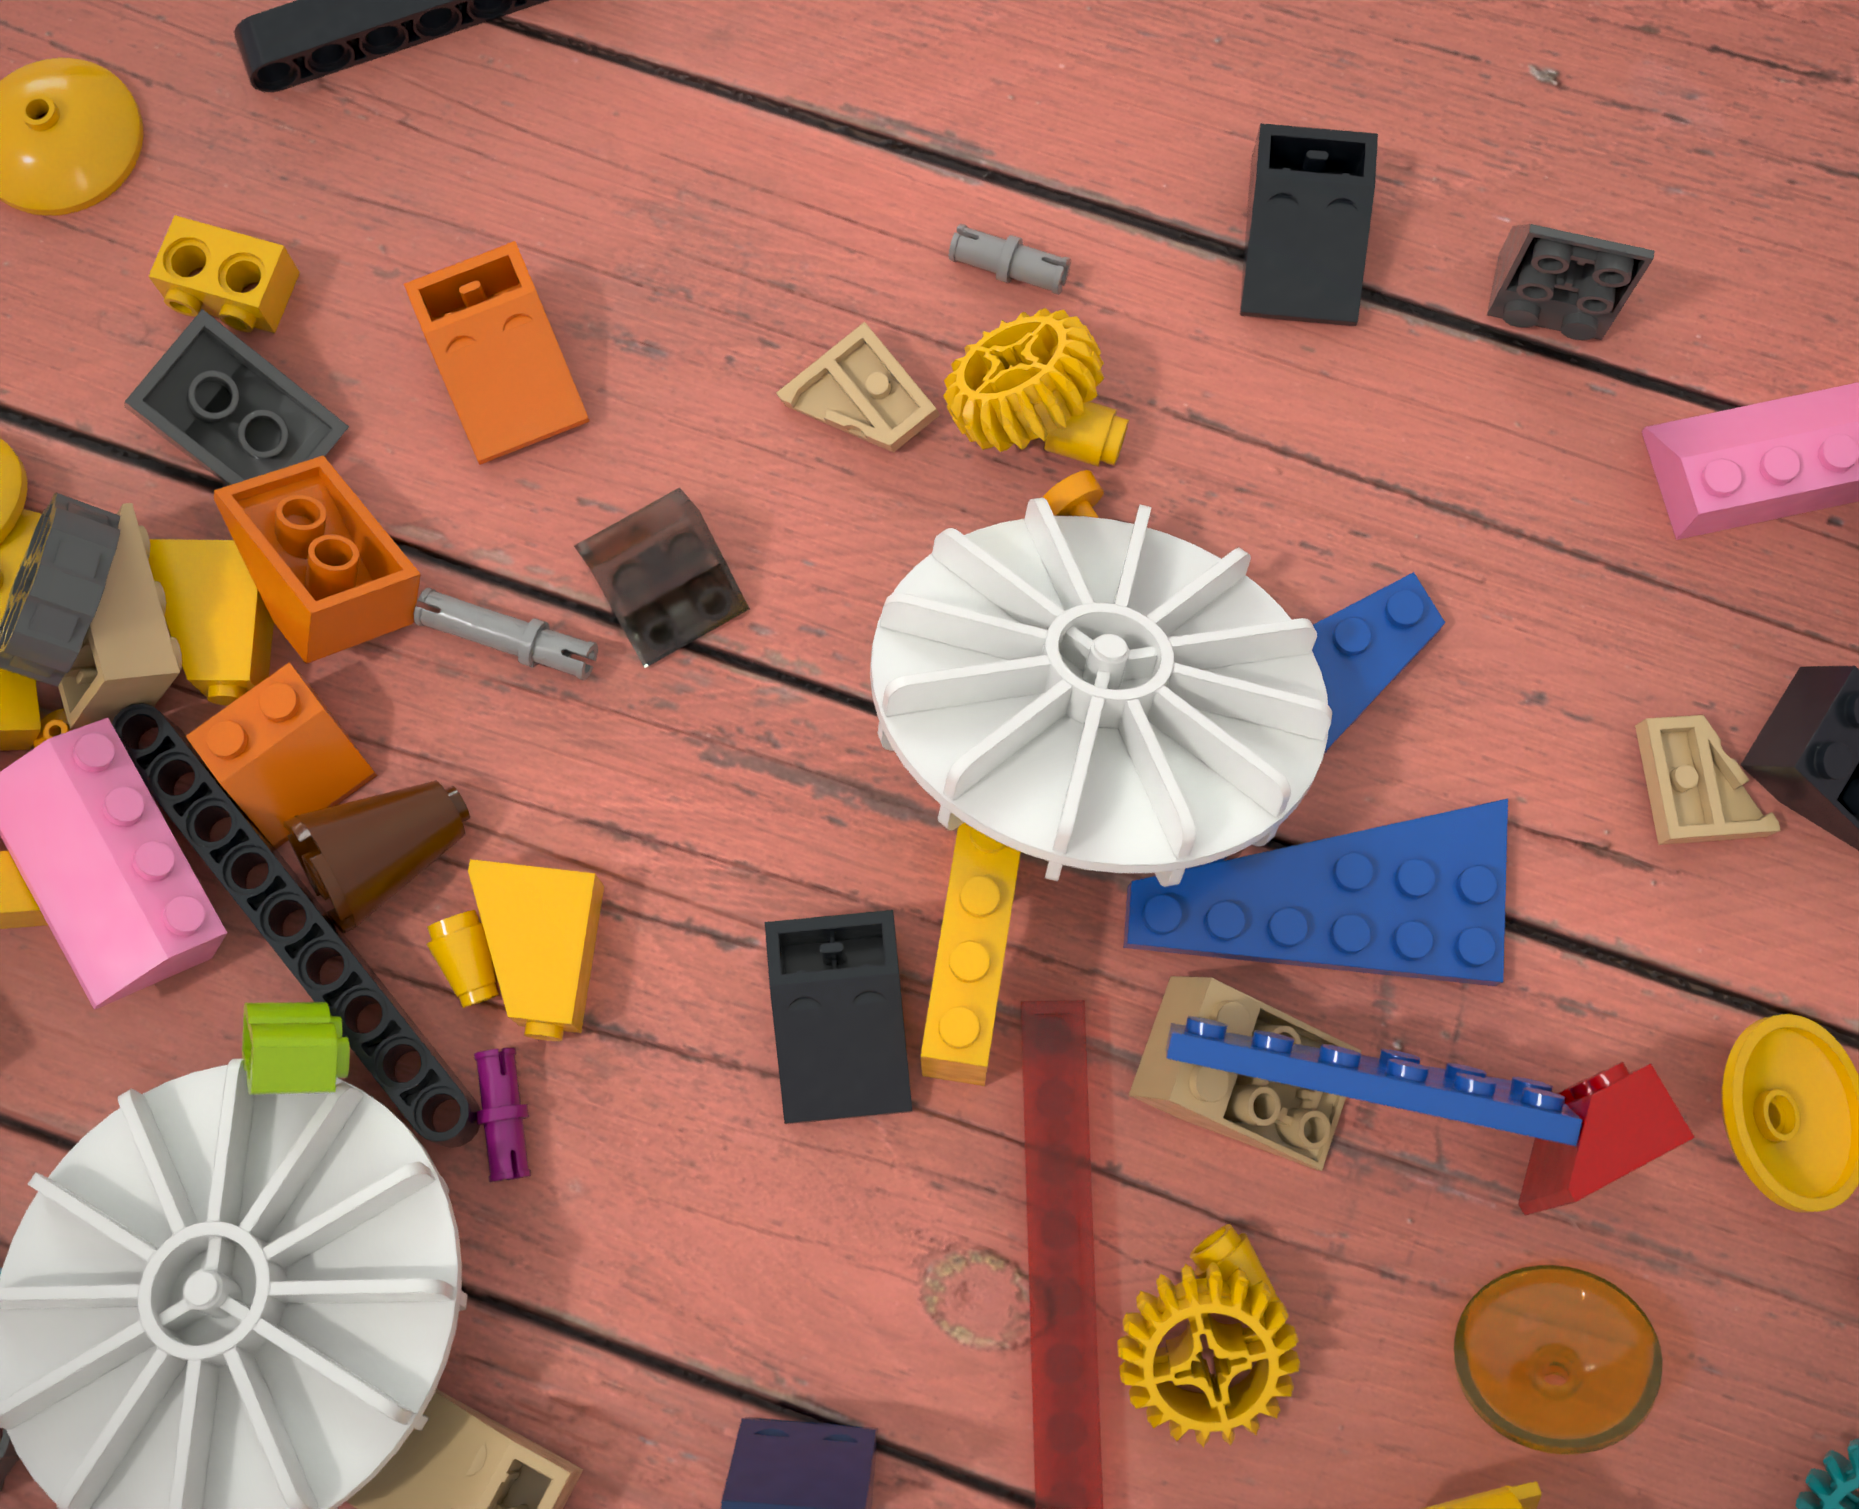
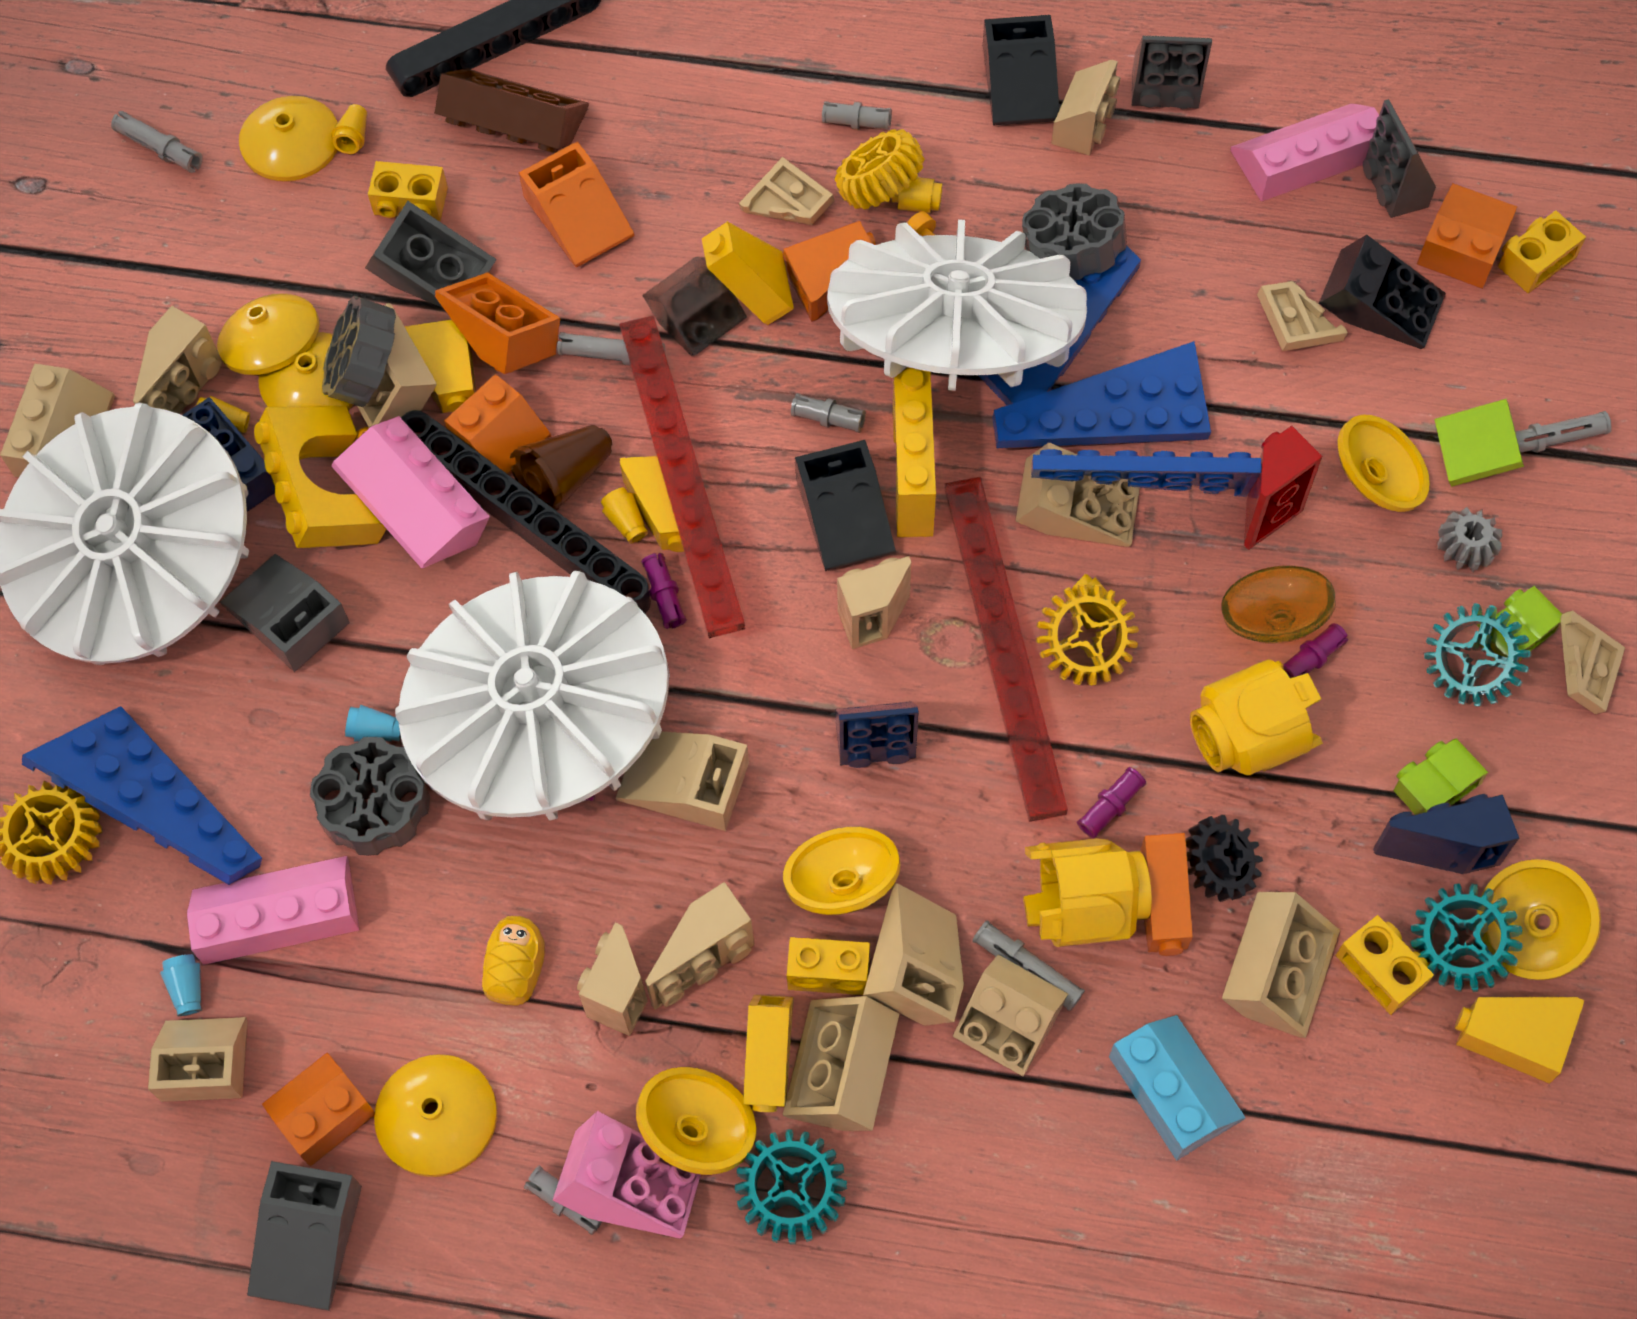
camera: 10 degrees left, 10 degrees down
(154, 142) = (350, 130): none -> yellow cone
(293, 1048) = (546, 554): lime brick -> none
(425, 145) = (509, 109): none -> reddish brown slope
(565, 923) = (682, 478): none -> clear red plate
(761, 539) = (749, 270): none -> yellow slope
(848, 823) = (828, 412): none -> light grey pin
(848, 1222) = (873, 600): none -> tan slope
(893, 531) = (813, 261): none -> orange slope
(1318, 517) = (1077, 224): none -> dark grey connector
(1407, 317) = (1086, 108): none -> tan slope
(1571, 1474) = (1315, 652): none -> magenta pin

